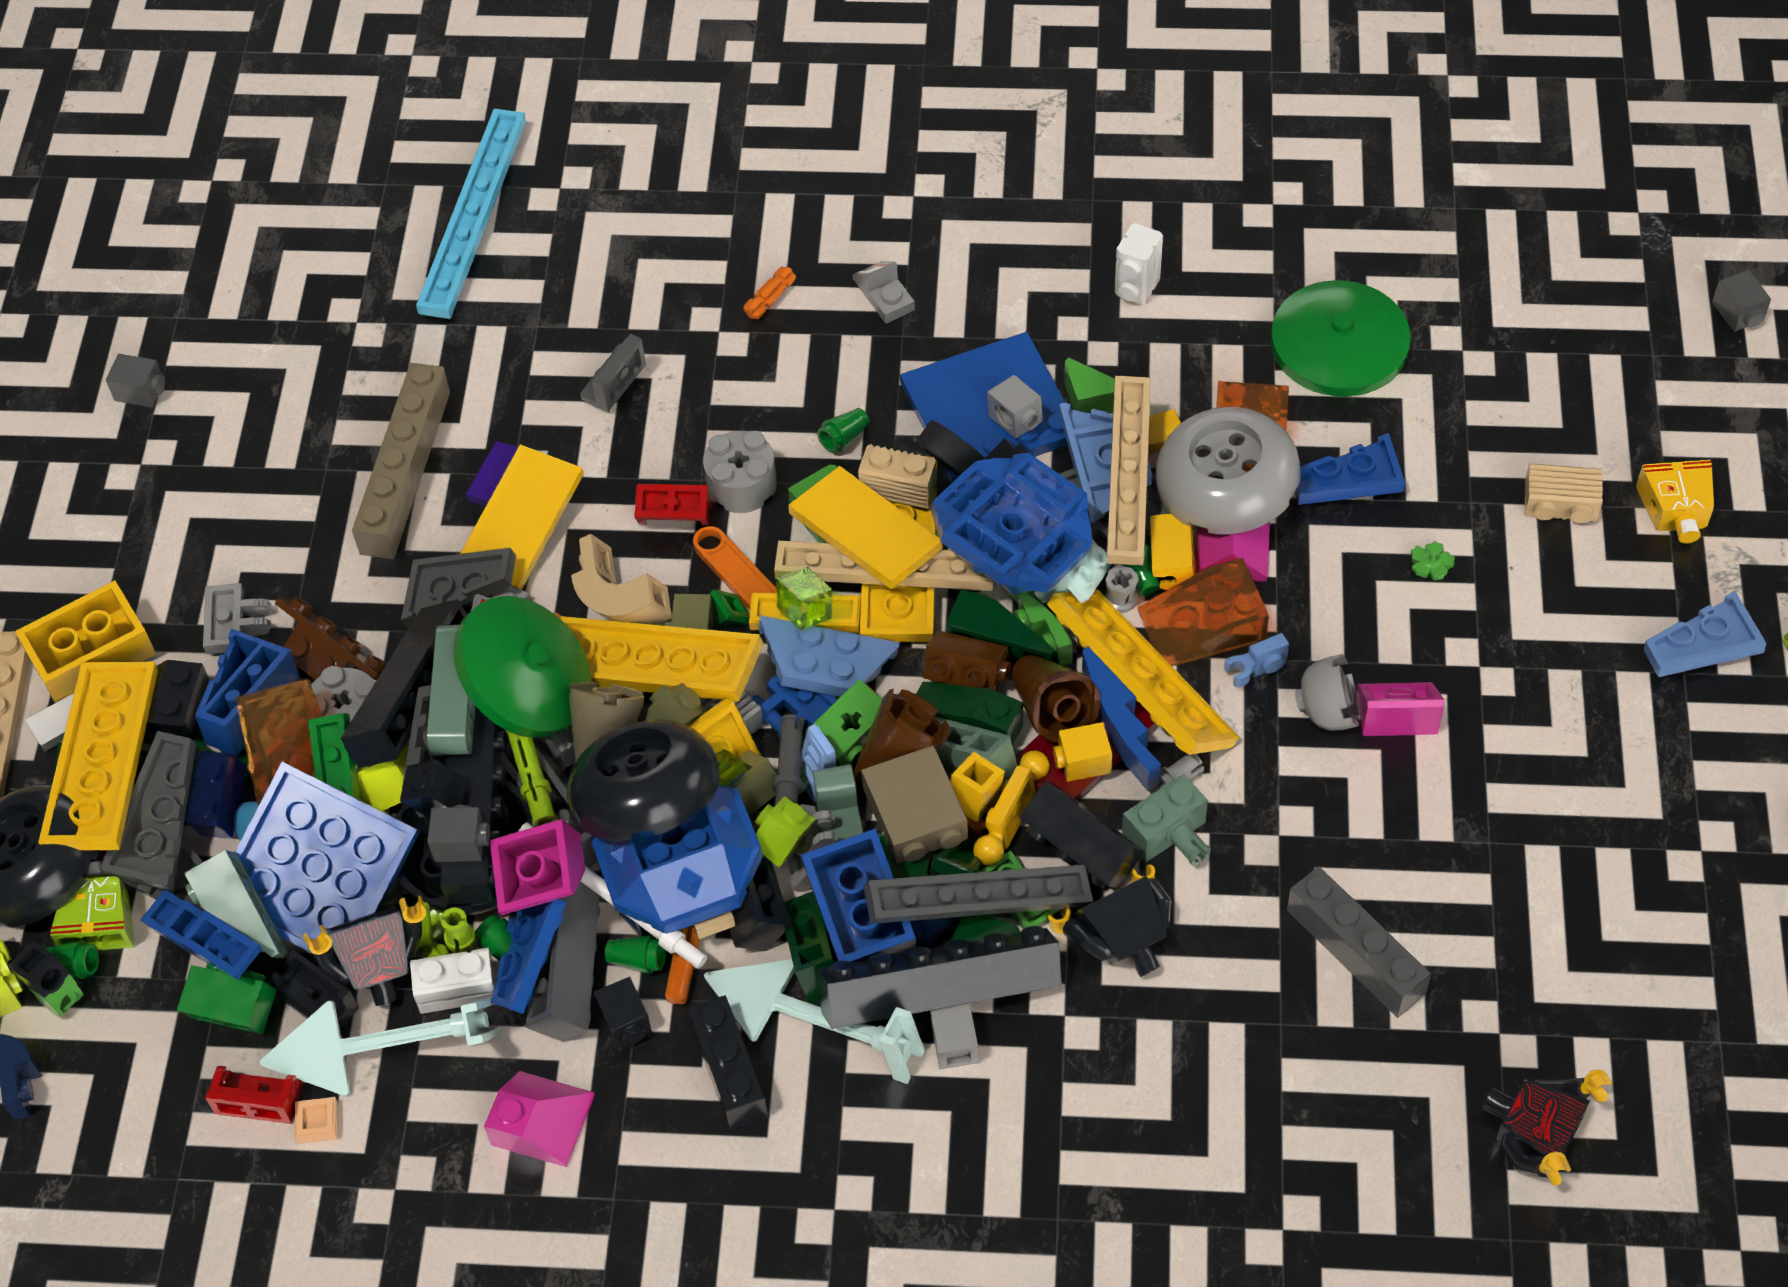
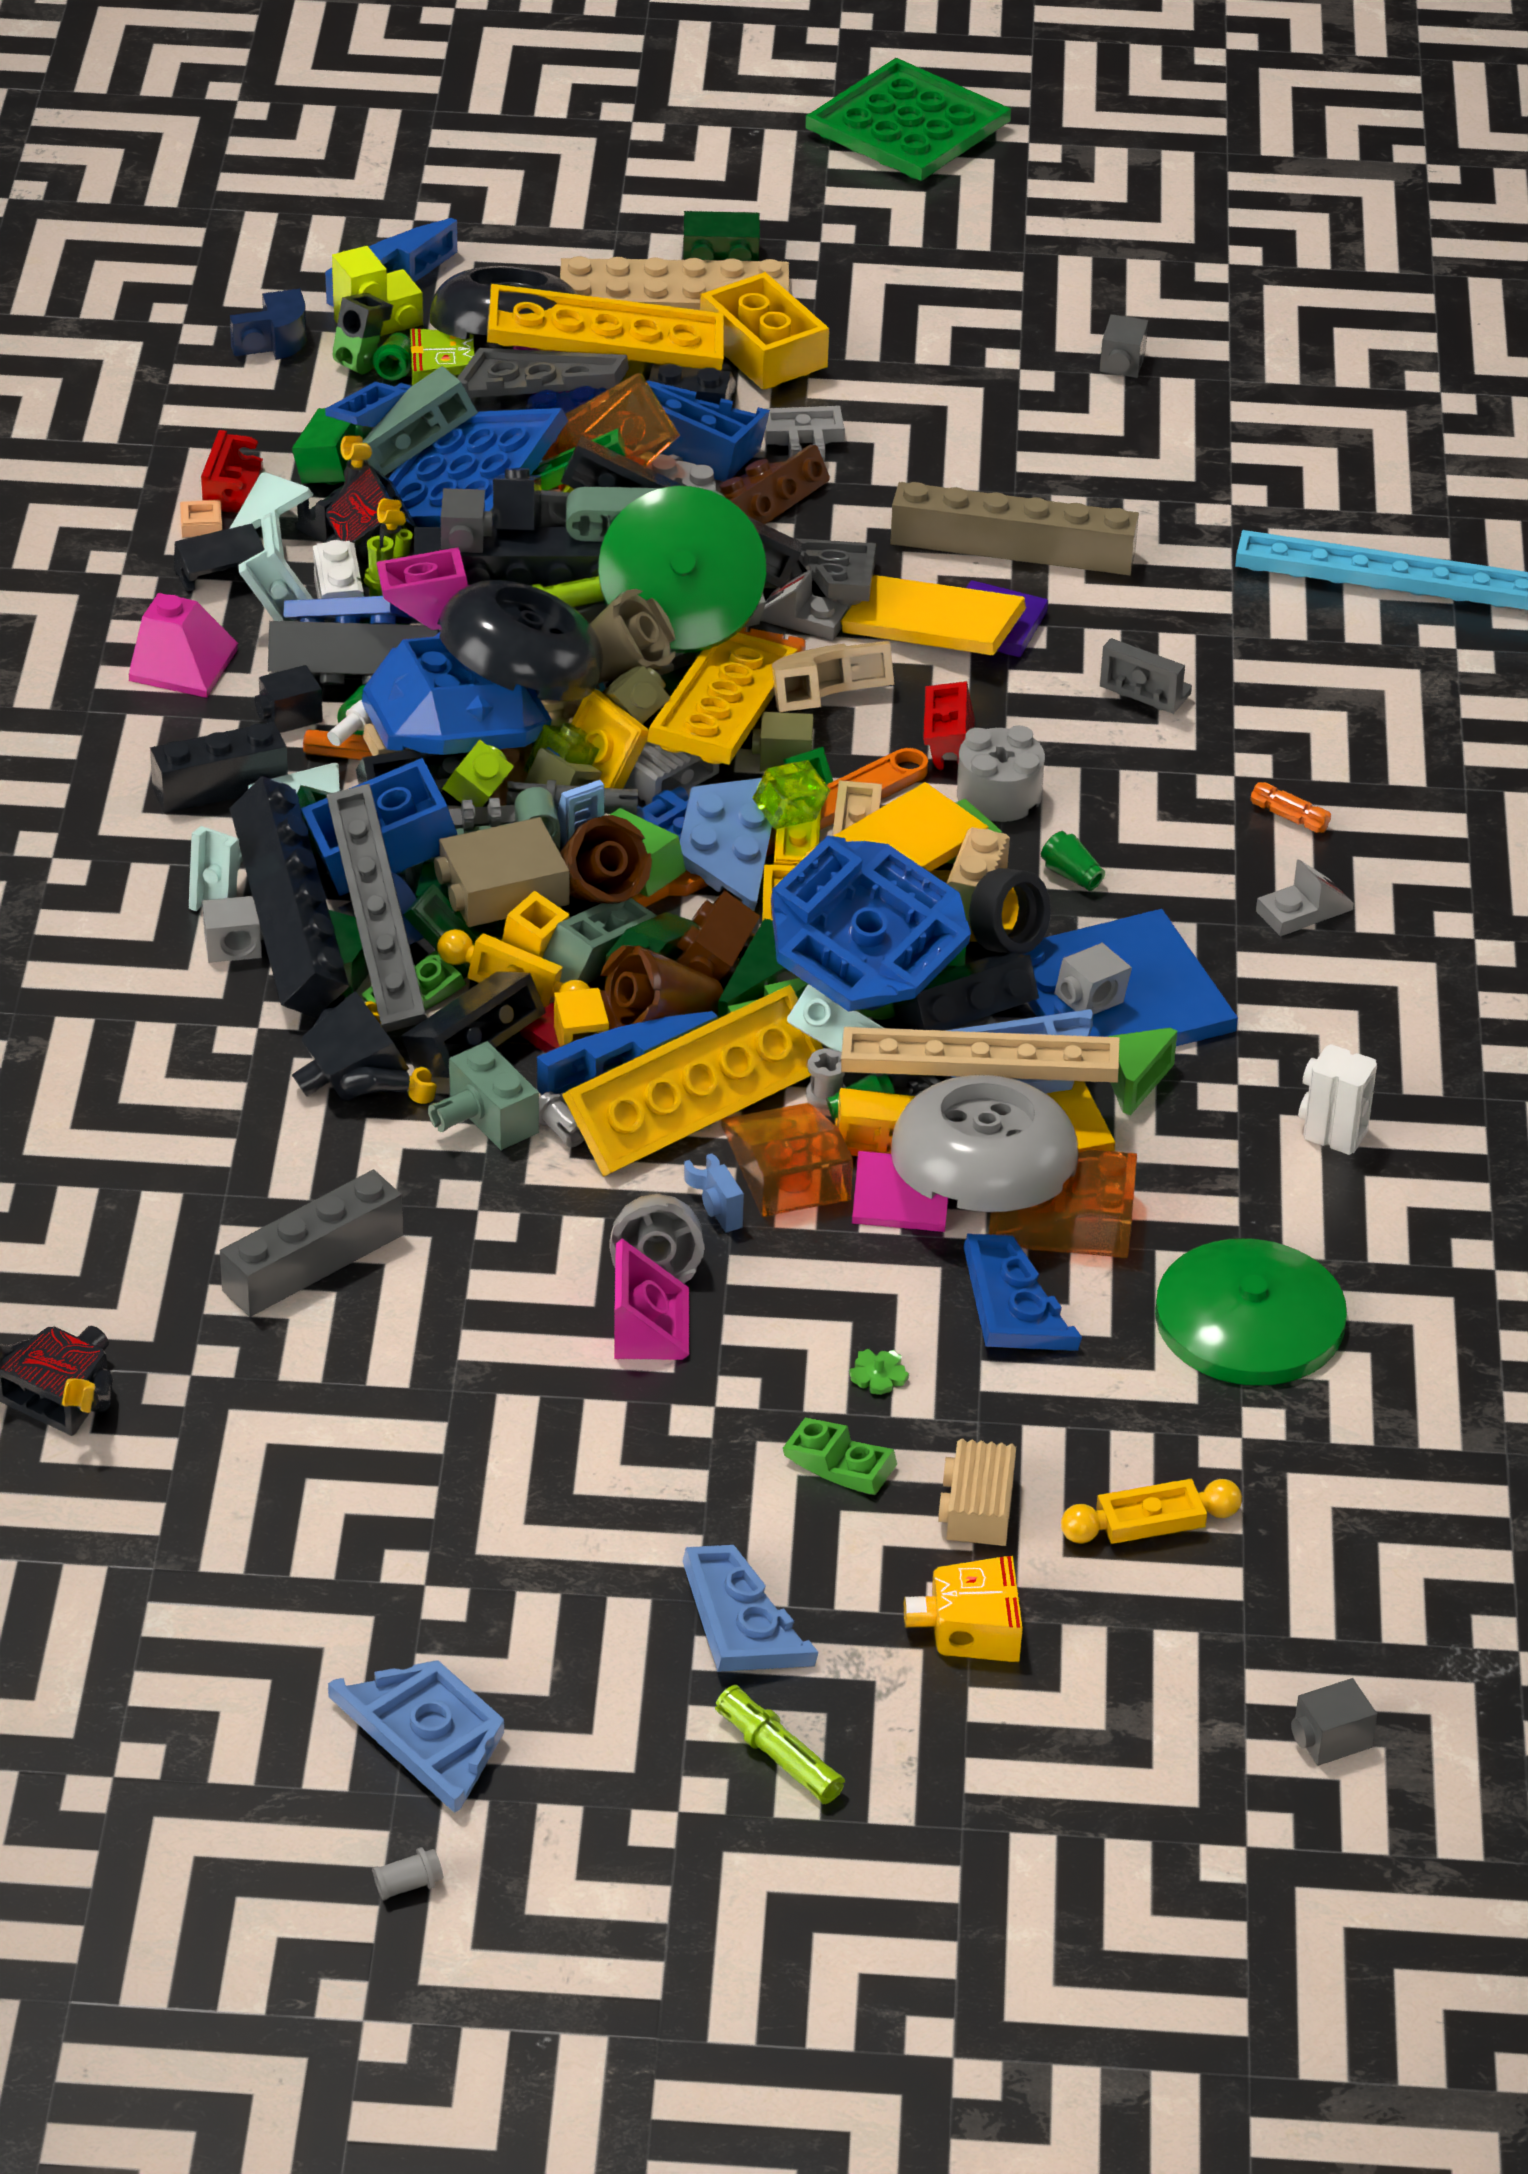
camera: 85 degrees right, 15 degrees down
(399, 1090) = (214, 552): none -> black hinge
(1530, 581) = (830, 1453): none -> bright green slope
(1559, 396) = (1151, 1511): none -> yellow plate

